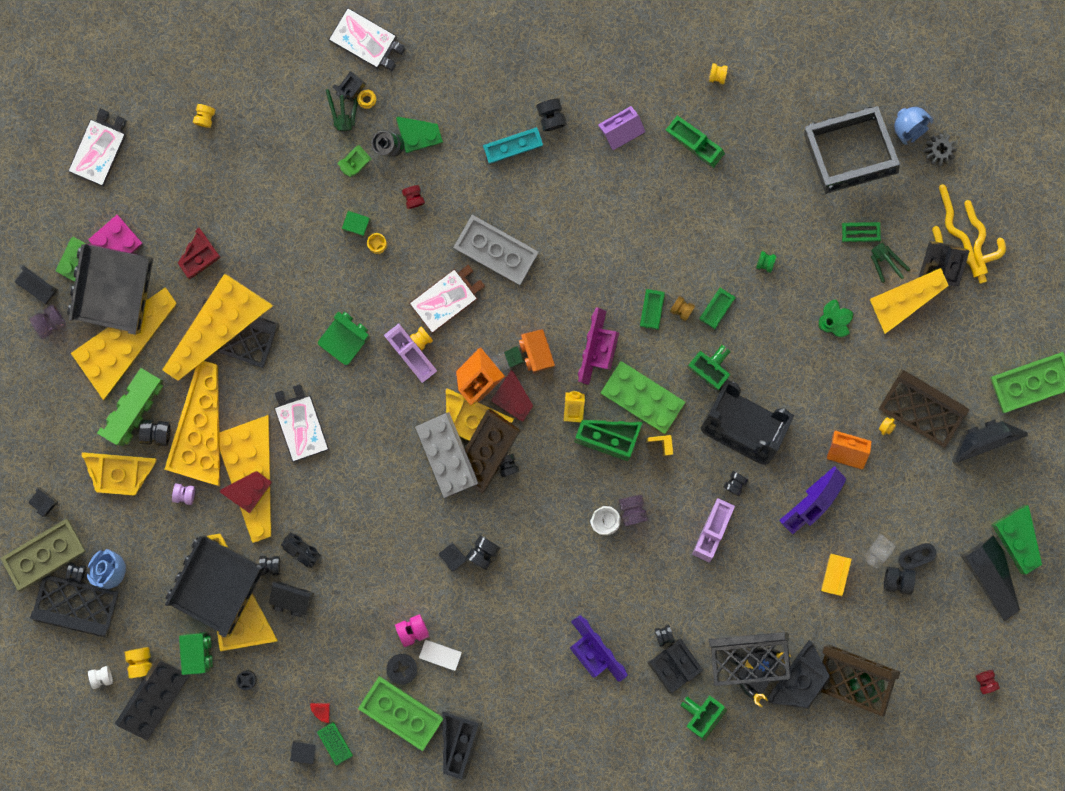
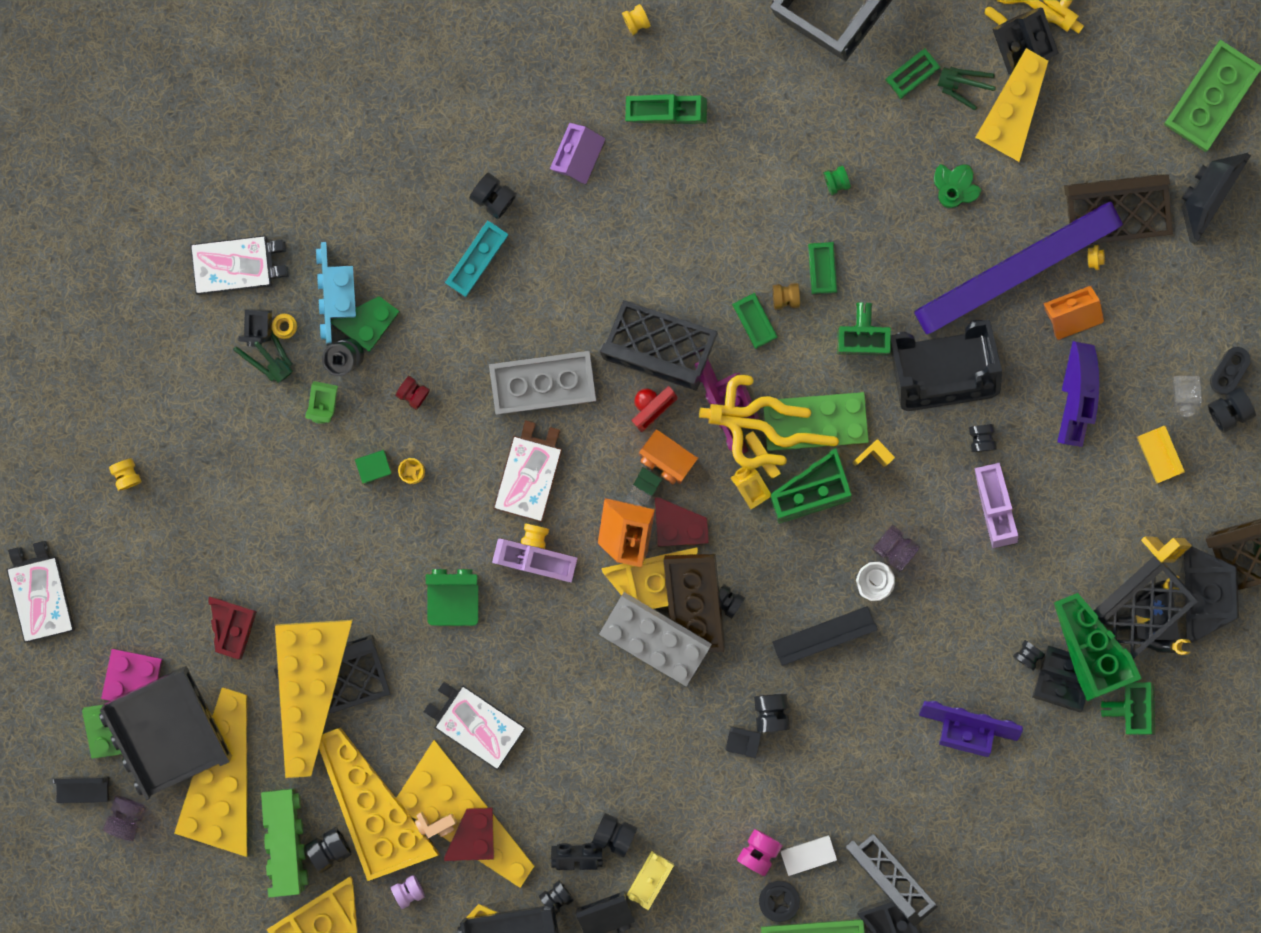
camera: 25 degrees left, 0 degrees up
(233, 470) = (442, 826): none -> light nougat bracket
(332, 553) = (614, 835): none -> black wheel
(333, 597) = (650, 880): none -> light yellow hinge
(414, 102) = (337, 292): none -> medium azure bracket
(472, 703) = (884, 883): none -> fence
(550, 530) = (824, 636): none -> black fence
(551, 313) = (651, 406): none -> red tile
(567, 284) = (646, 362): none -> black fence
(594, 356) = (730, 416): none -> yellow plant
(595, 393) = (758, 449): none -> yellow tile
(705, 662) = (1095, 653): none -> green wedge
(795, 636) = (1170, 552): none -> yellow panel
(835, 397) = (1018, 268): none -> dark purple beam

